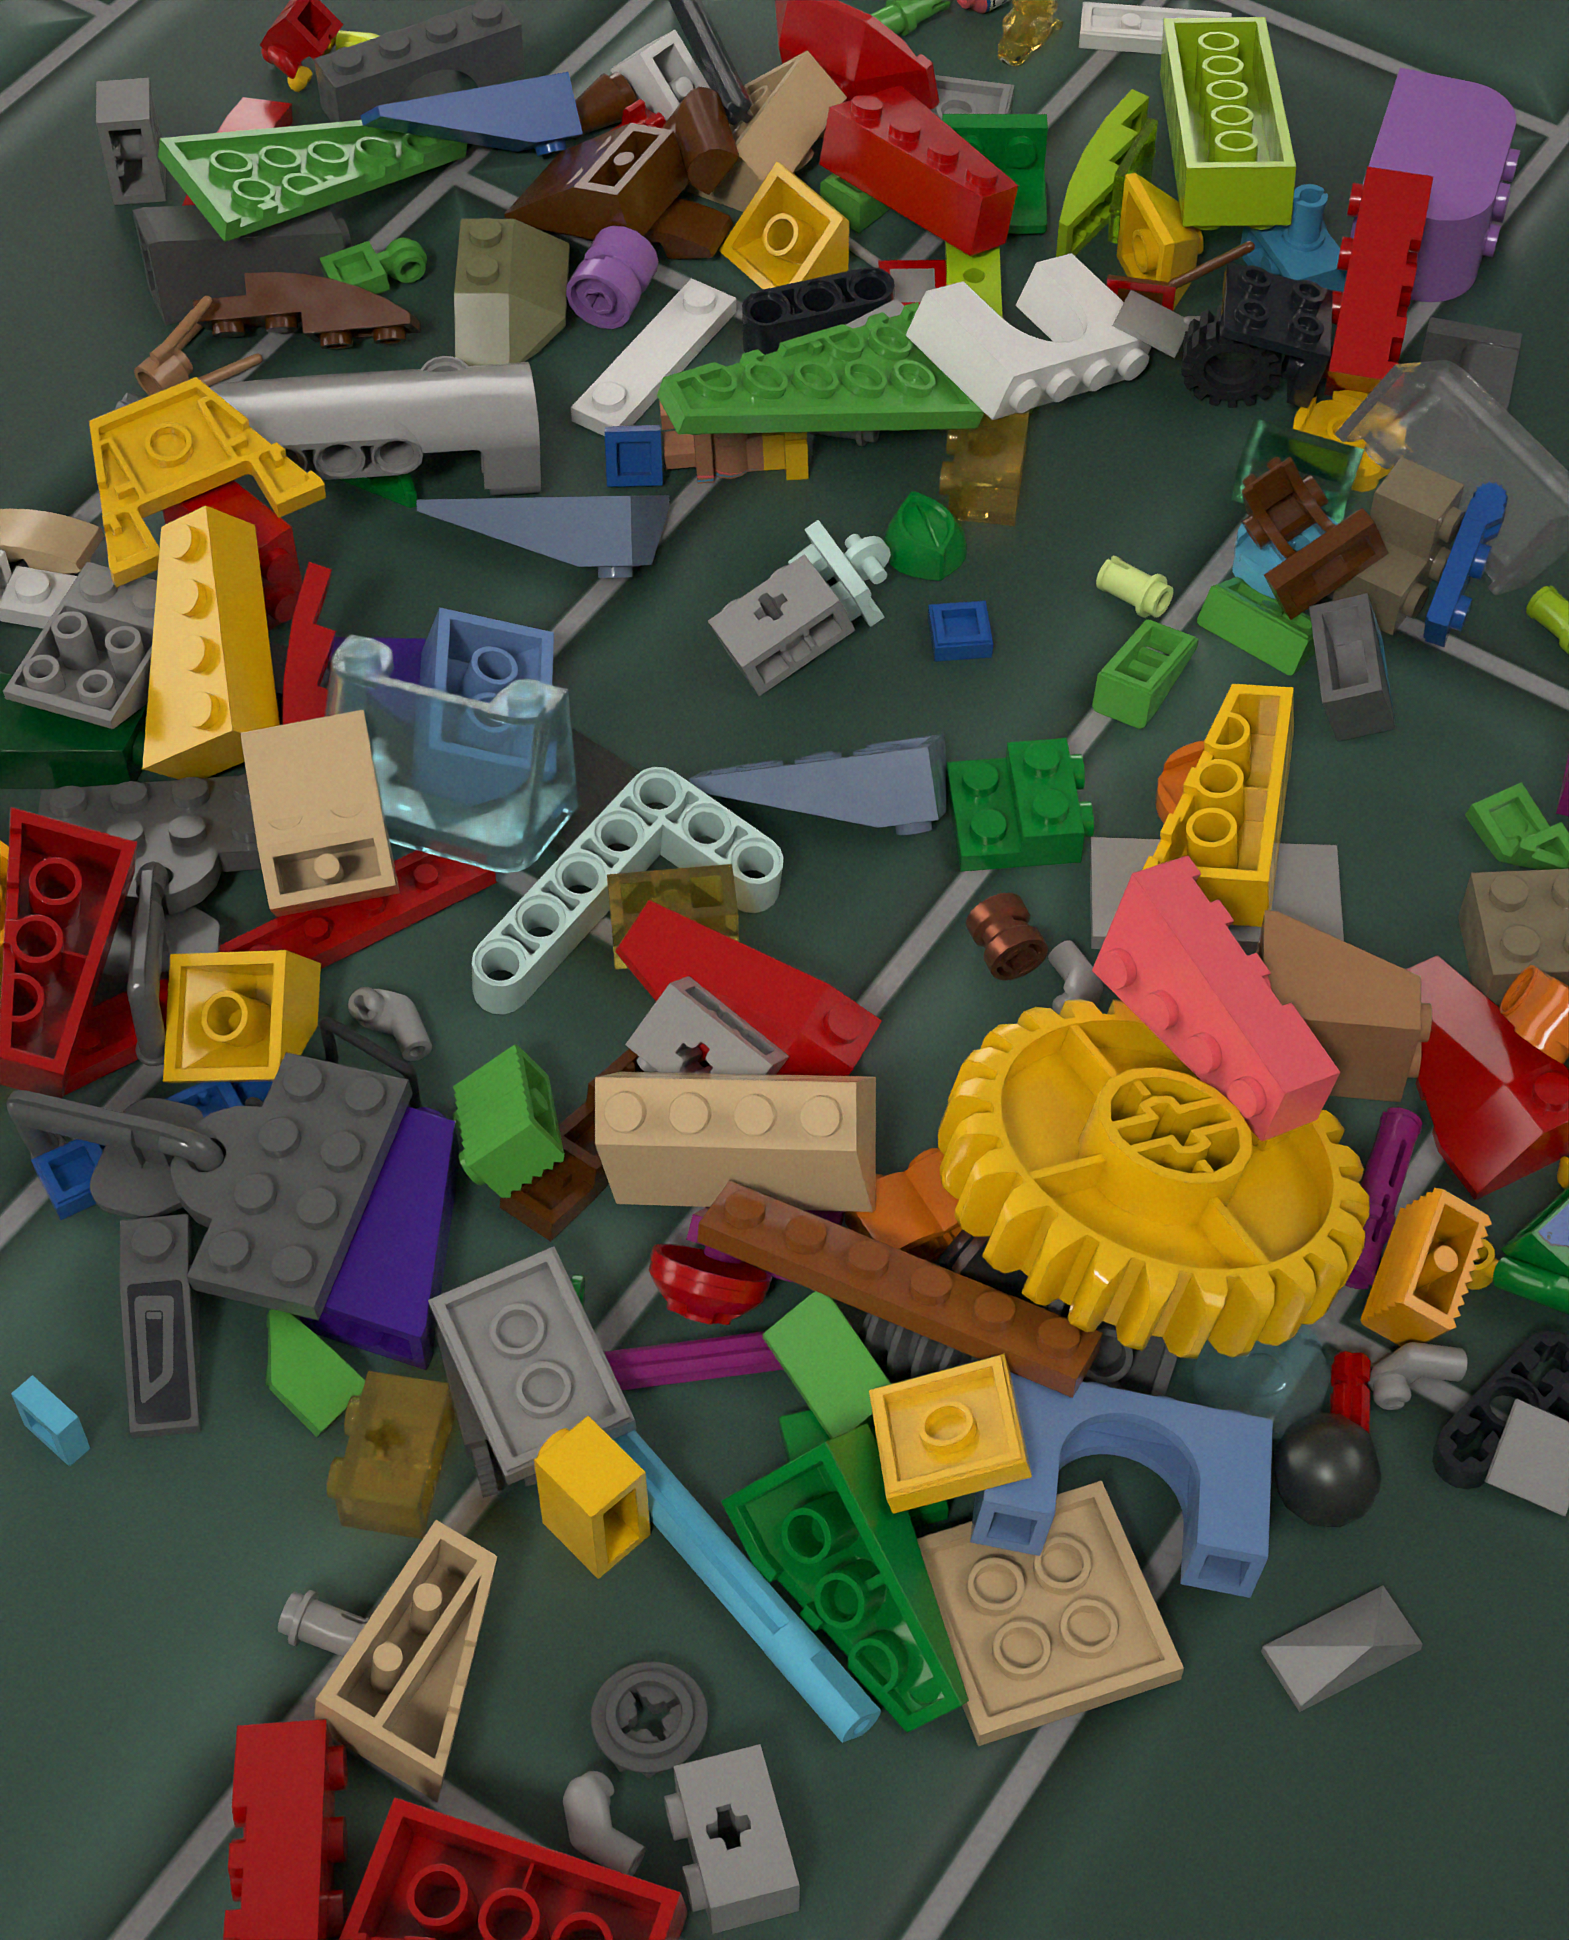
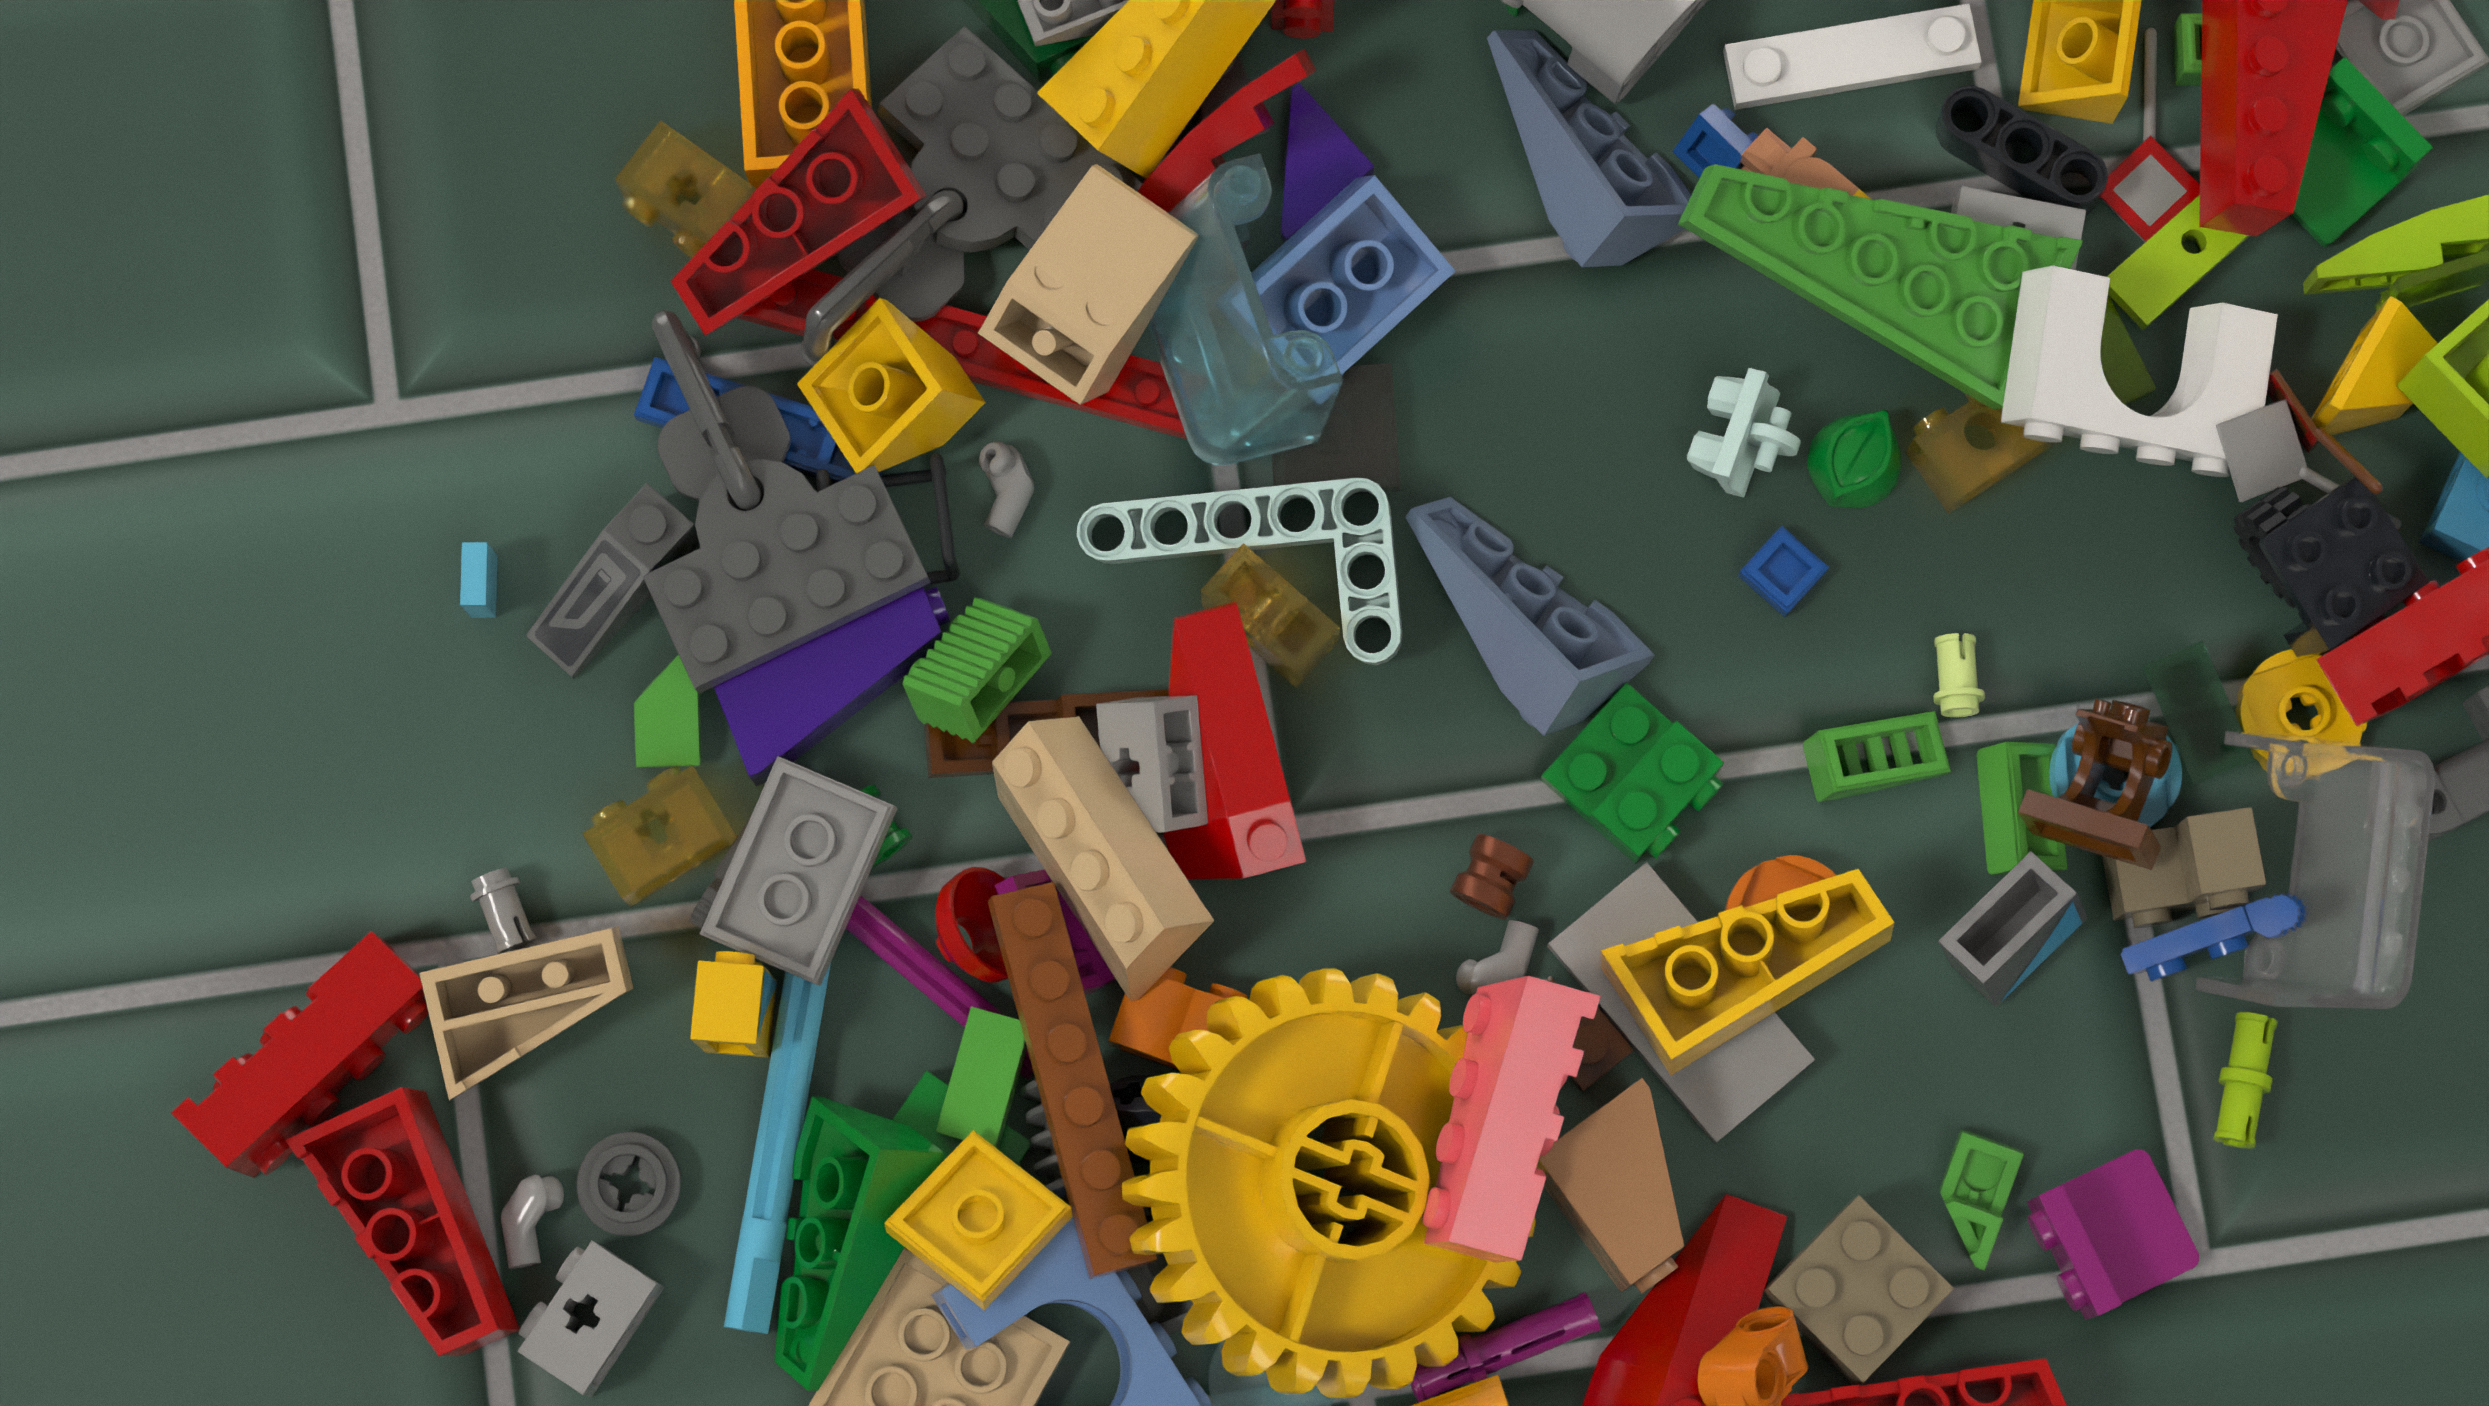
camera: 50 degrees right, 25 degrees up
(781, 624) = (1658, 459): light grey brick -> none

